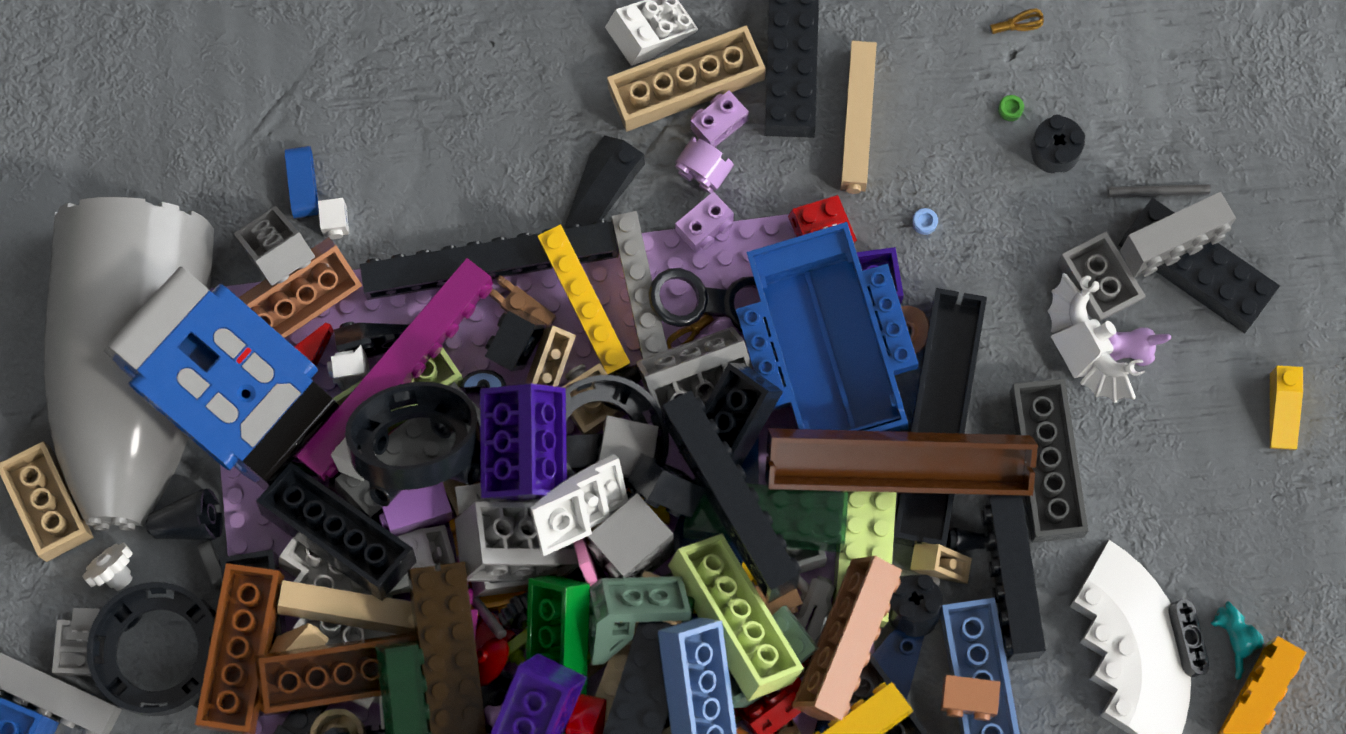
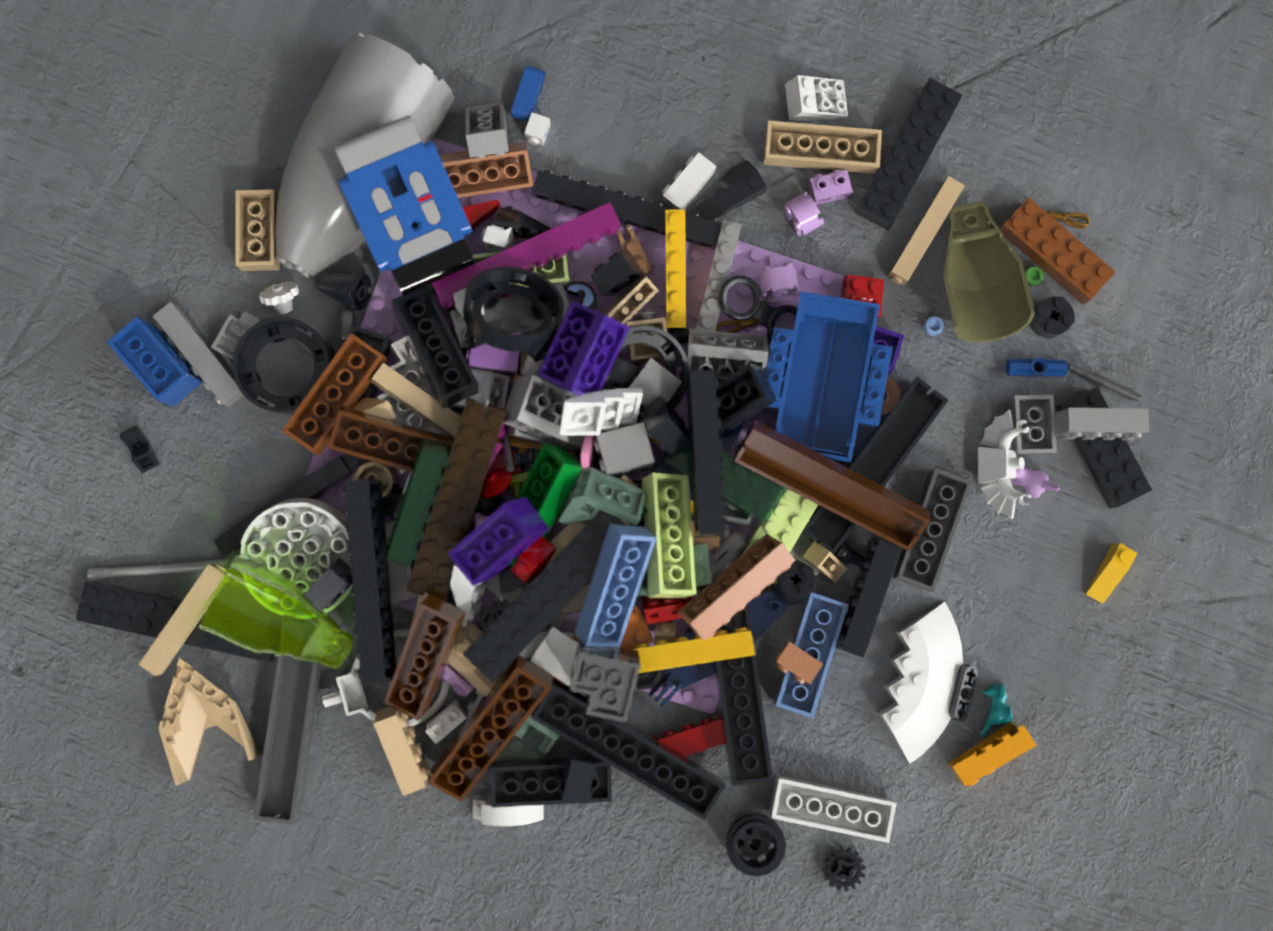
camera: 20 degrees right, 10 degrees up
(547, 193) = (688, 182): none -> white brick
(705, 222) = (785, 252): lavender brick -> none
(715, 258) = (778, 283): none -> lavender brick
(954, 137) = (984, 278): none -> olive windscreen
(1022, 66) = (1056, 251): none -> dark orange brick
(1084, 205) = (1047, 367): none -> blue piece

